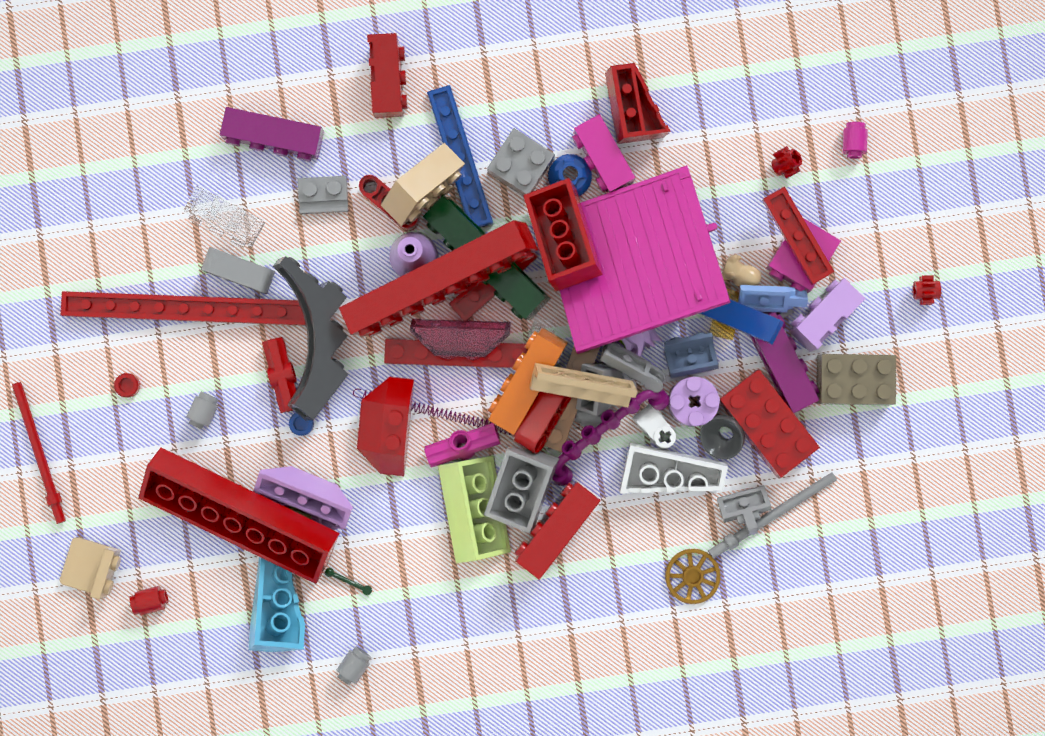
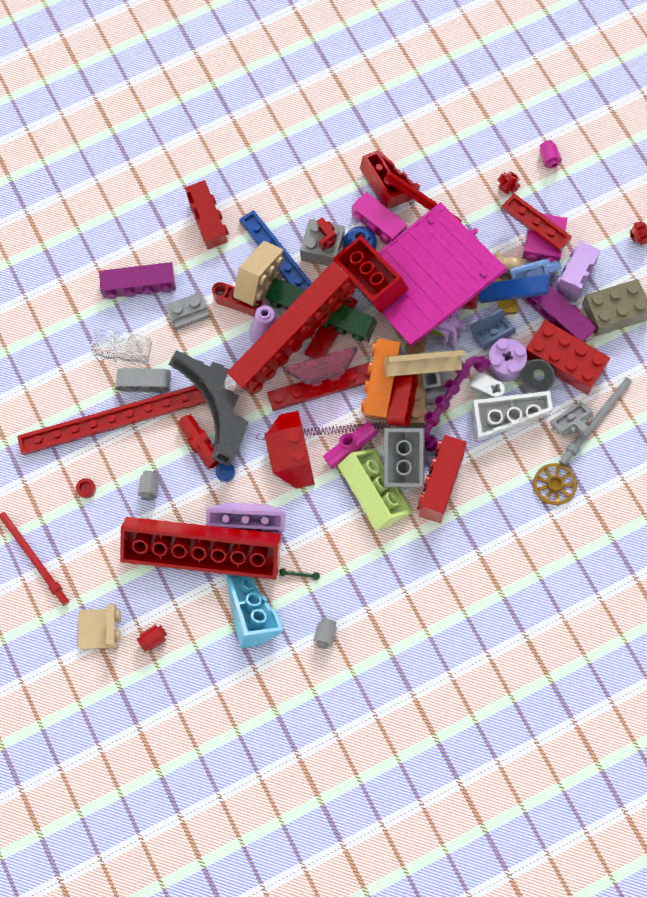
camera: 15 degrees left, 15 degrees down
(529, 157) = (327, 231): none -> red bracket
(633, 366) = (441, 341): light grey hinge -> none
(661, 146) = (411, 191): none -> red axle

